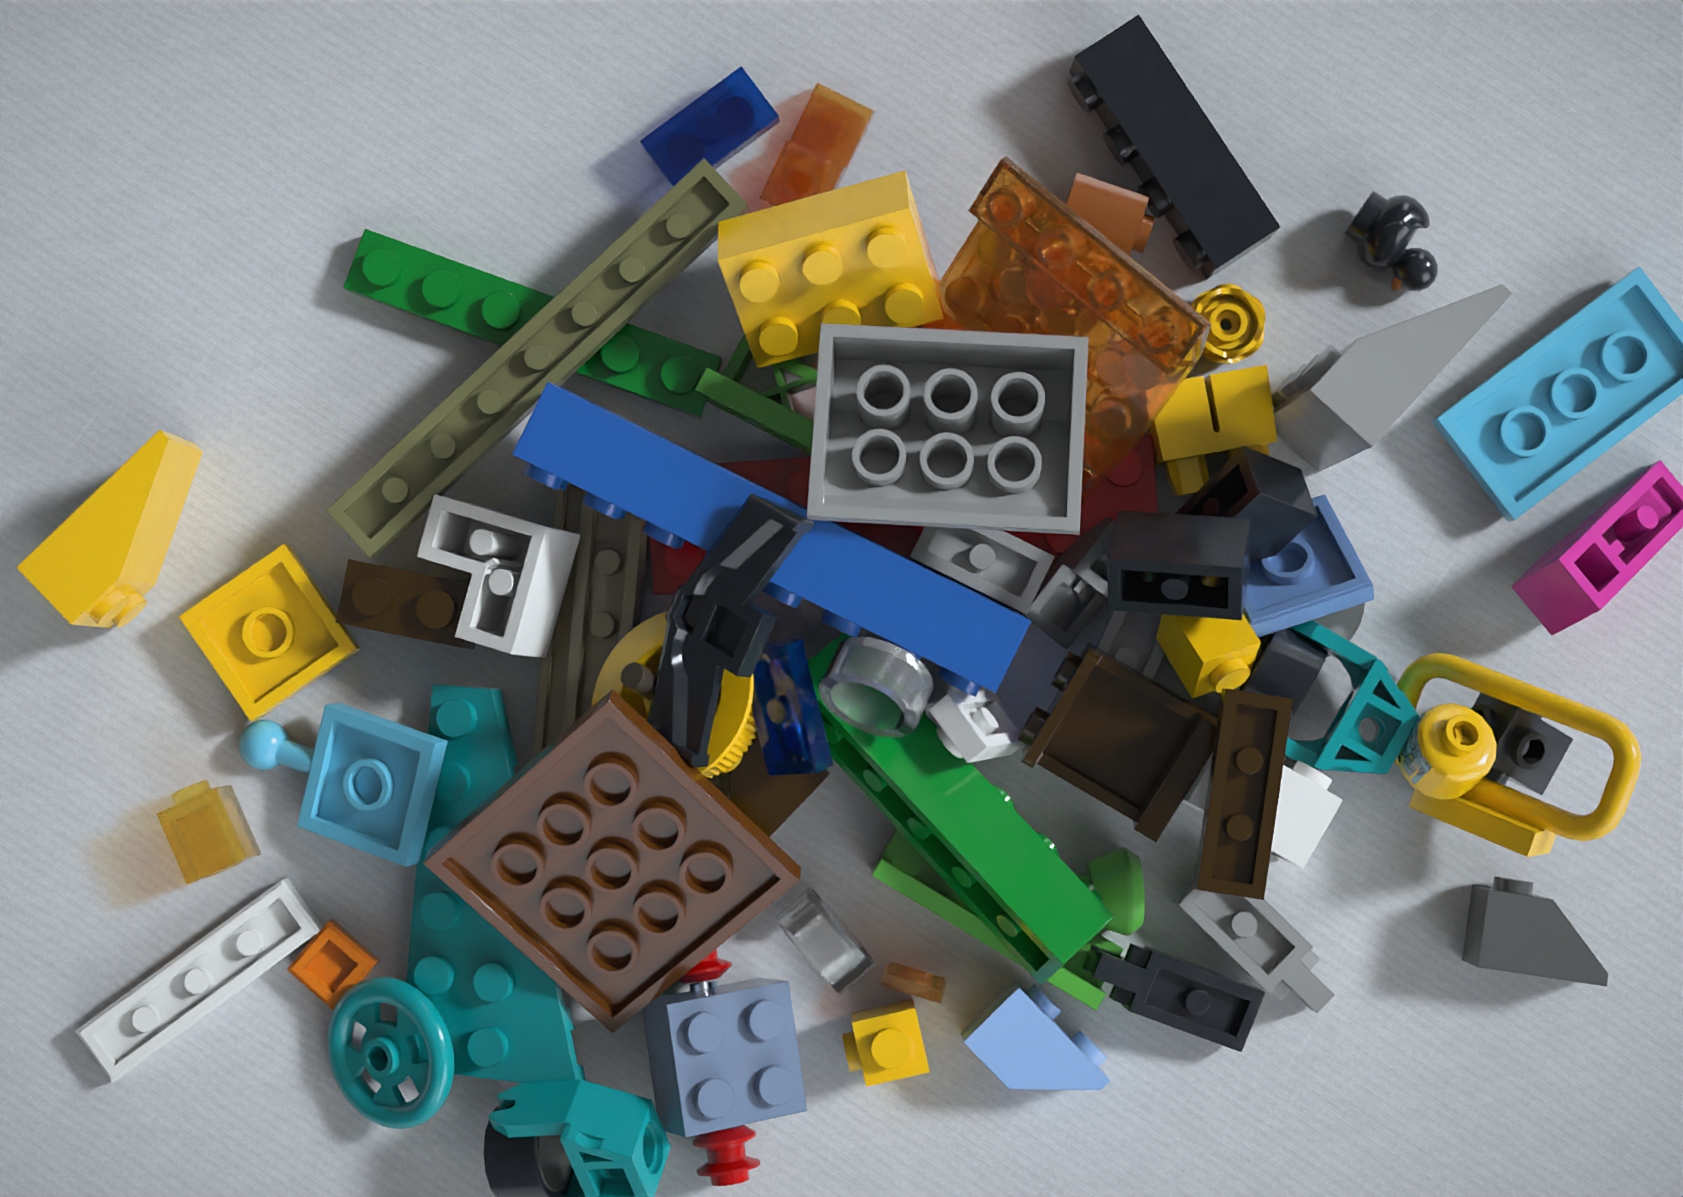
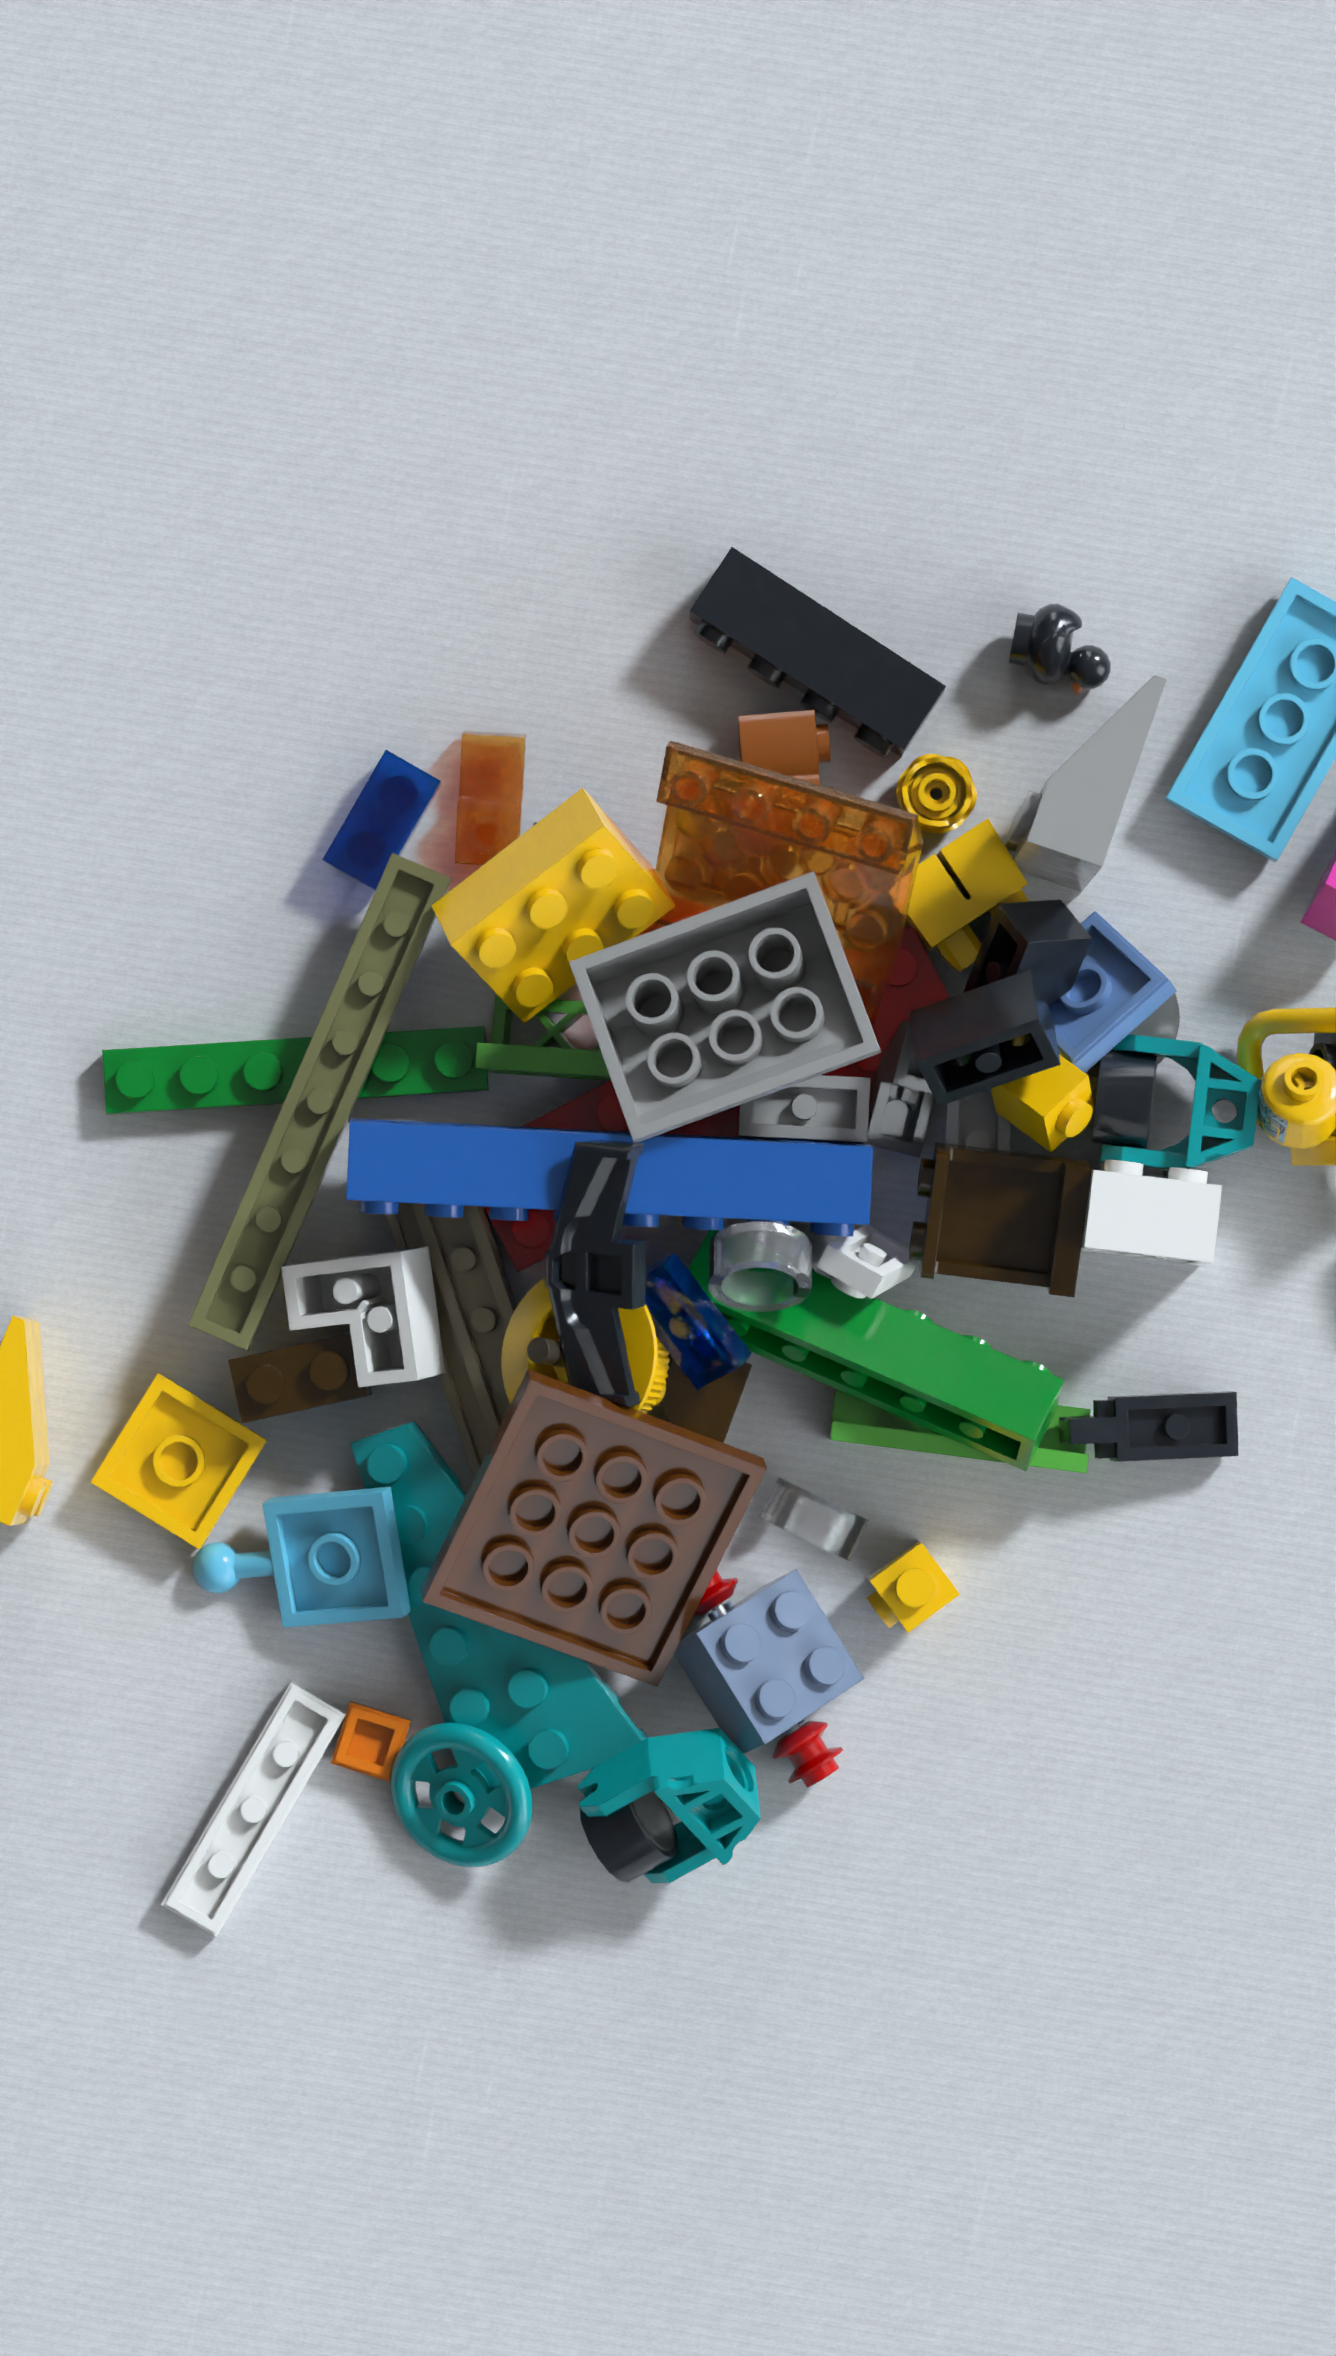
camera: 25 degrees left, 0 degrees up
(207, 831) = (203, 1667): clear yellow brick -> none
(914, 982) = (911, 1522): clear orange tile -> none
(1029, 1049) = (1043, 1536): light blue slope -> none
(1121, 886) = (1063, 1354): bright green cone -> none
(1243, 794) = (1128, 1218): dark brown plate -> none
(1259, 943) = (1203, 1343): light grey hinge -> none

